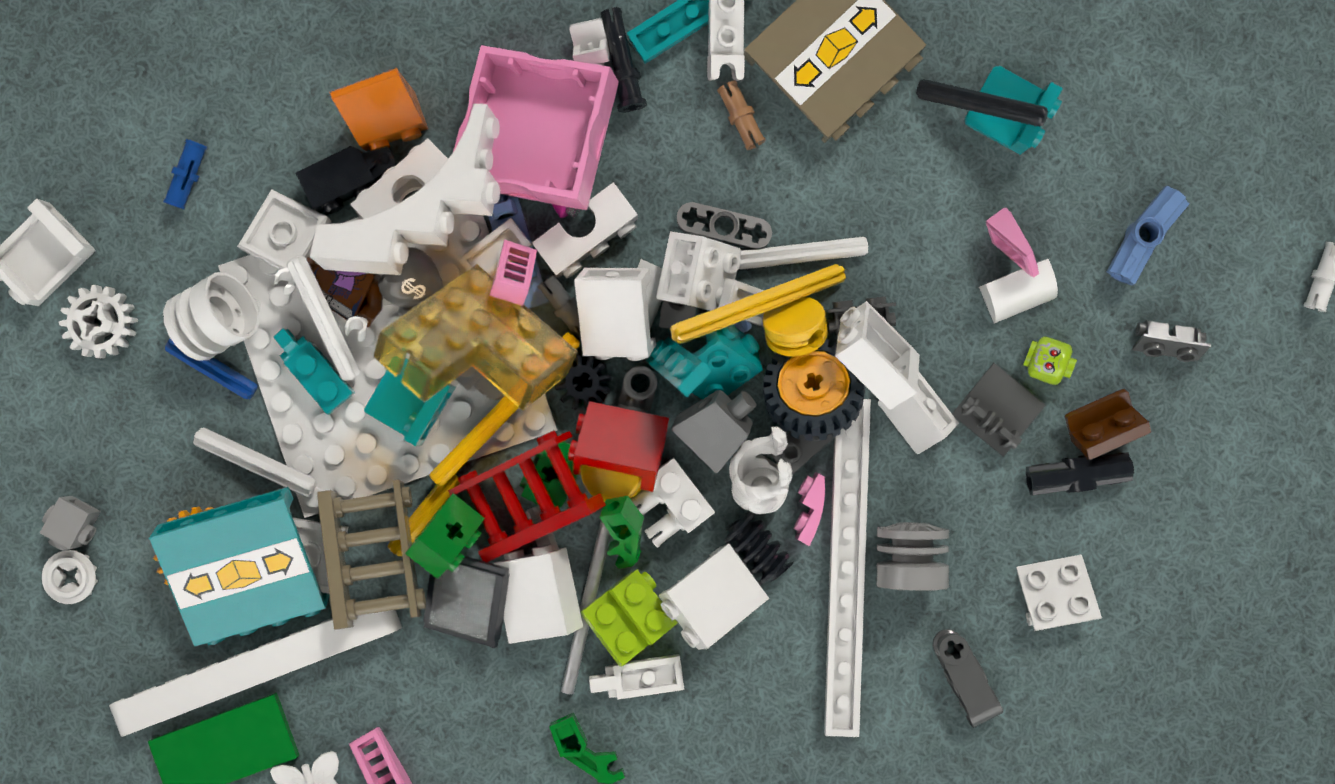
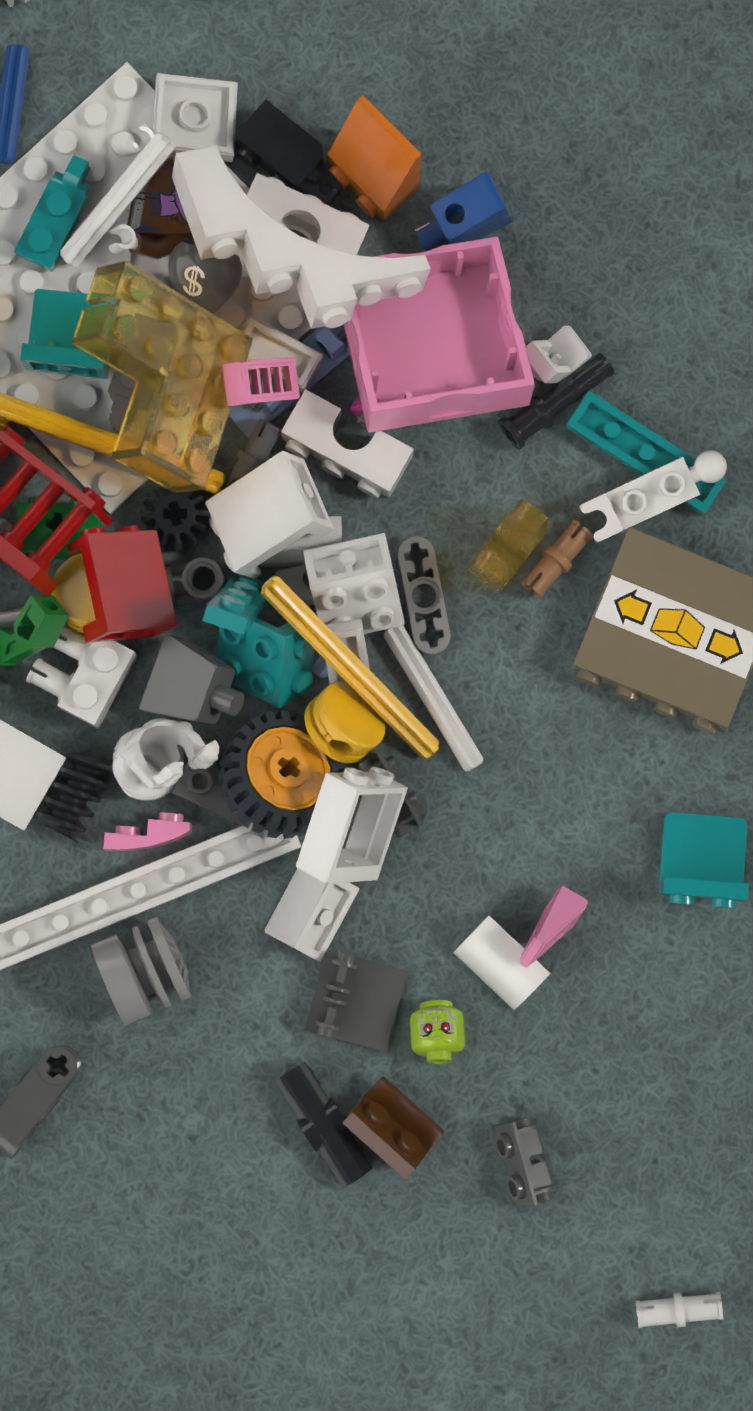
camera: 70 degrees right, 5 degrees down
(211, 316) = (65, 78): white wheel -> none
(447, 48) = (481, 209): none -> blue torso
(717, 145) = (509, 546): none -> clear yellow piece
(982, 102) = (691, 819): black axle -> none
(1058, 593) = (176, 1161): white hinge -> none
(1157, 219) = (657, 1084): medium blue piece -> none

